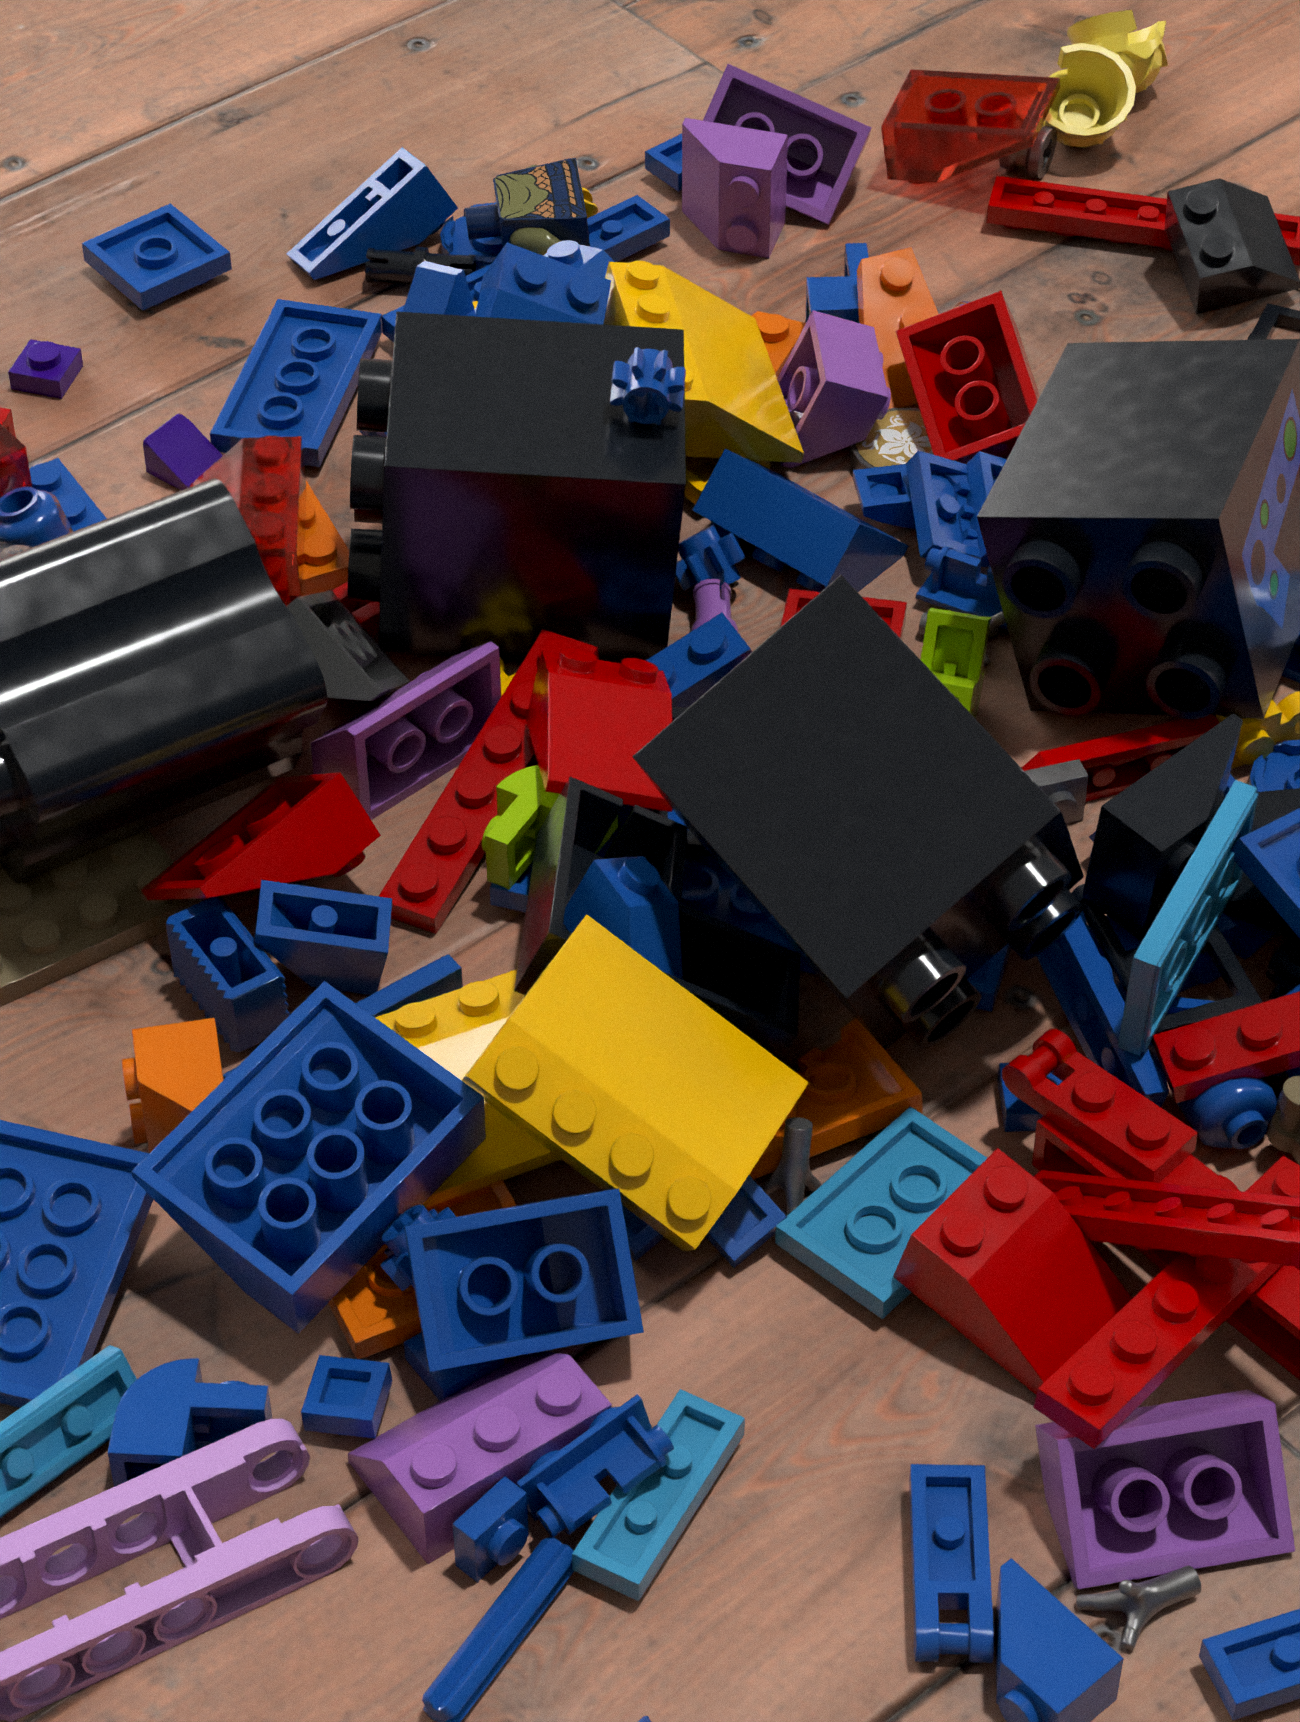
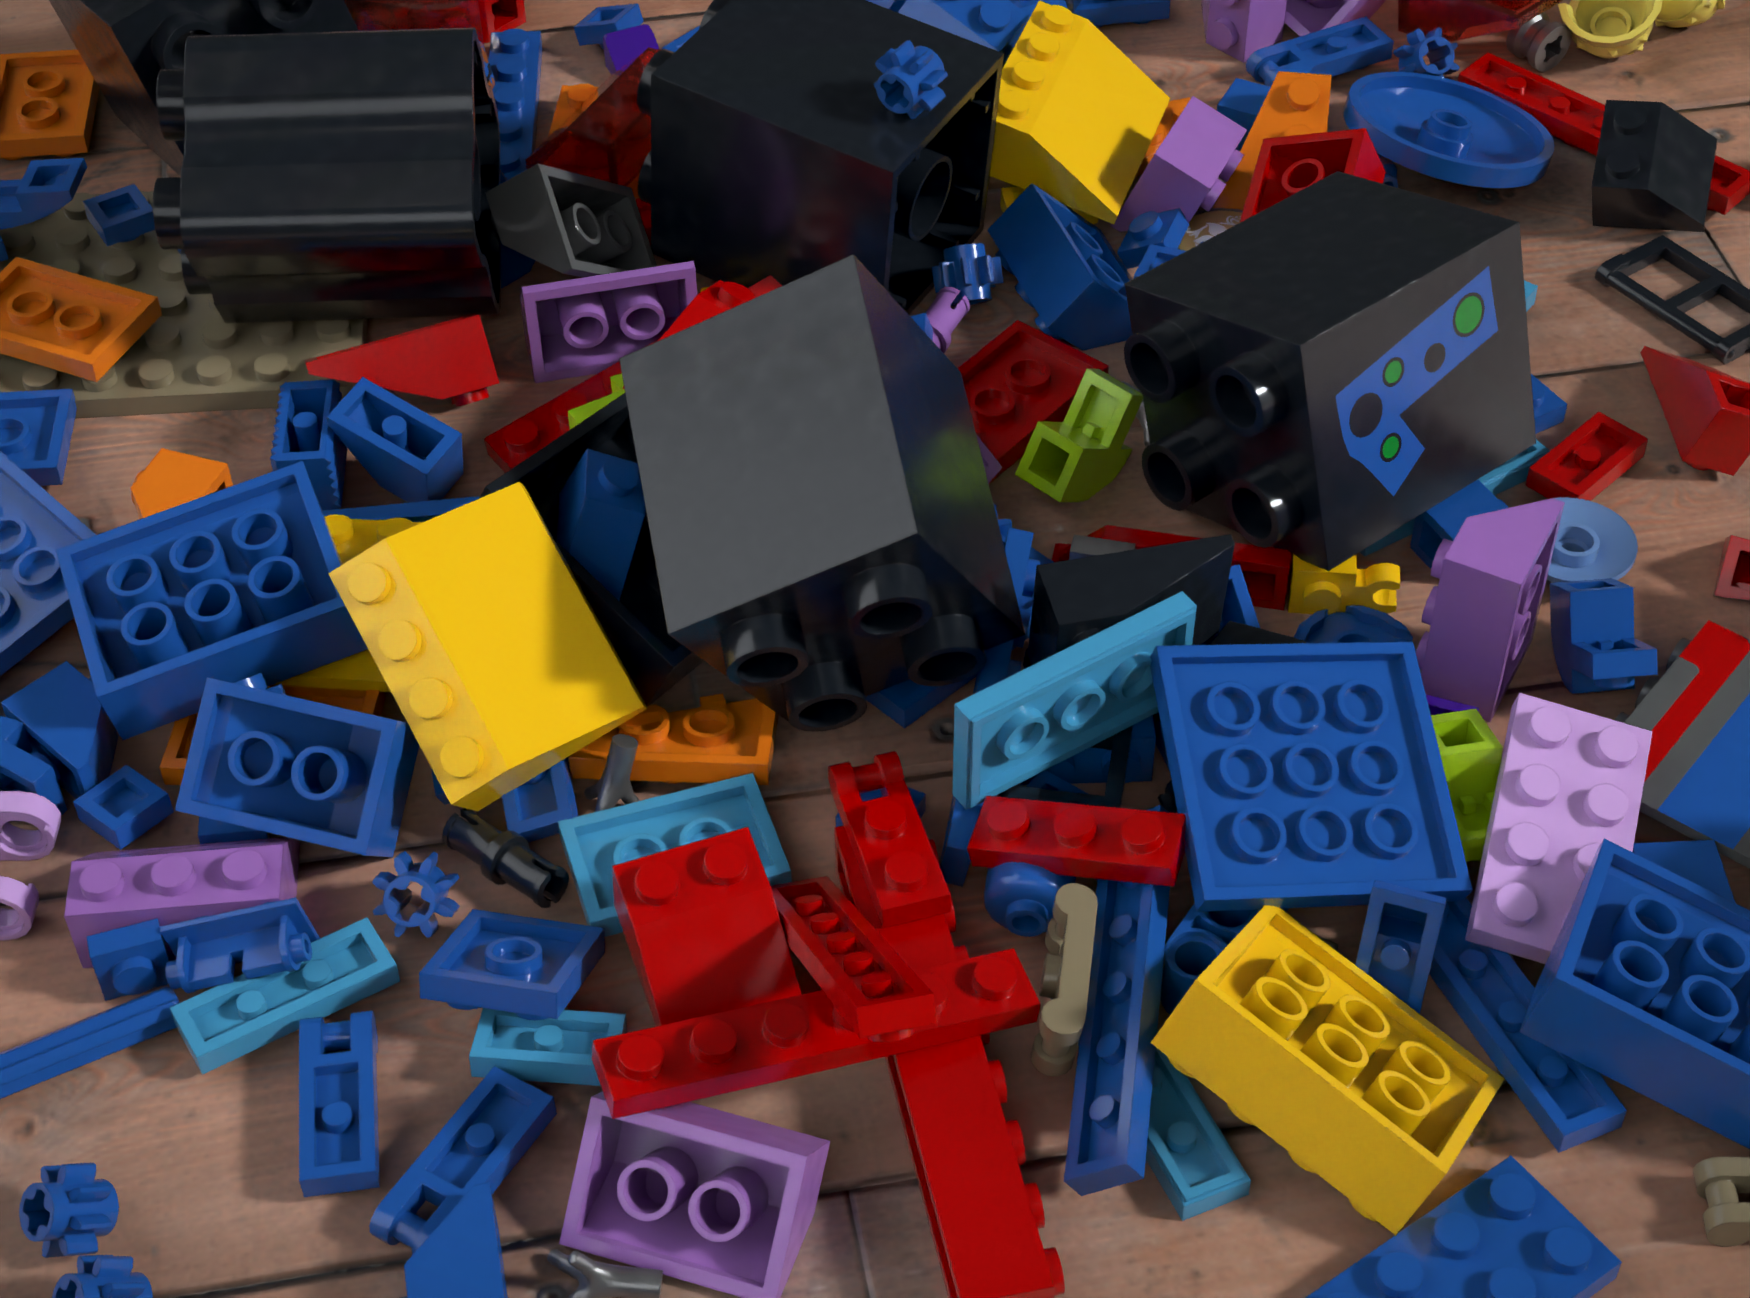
camera: 30 degrees right, 0 degrees up
(126, 426) = (607, 20): none -> blue plate
(233, 1344) = (67, 726): none -> blue slope
(712, 1364) = (434, 892): none -> blue gear
(748, 1281) = (505, 858): none -> black pin
(792, 1563) = (338, 1105): none -> blue plate
(835, 461) = (1154, 228): none -> blue plate
(851, 218) = (1329, 51): none -> blue plate
(854, 1368) = (512, 964): none -> blue plate
(934, 1424) = (543, 1048): none -> dark azure plate
(949, 201) = (1437, 49): none -> blue gear
(1033, 260) = (1449, 129): none -> blue dish

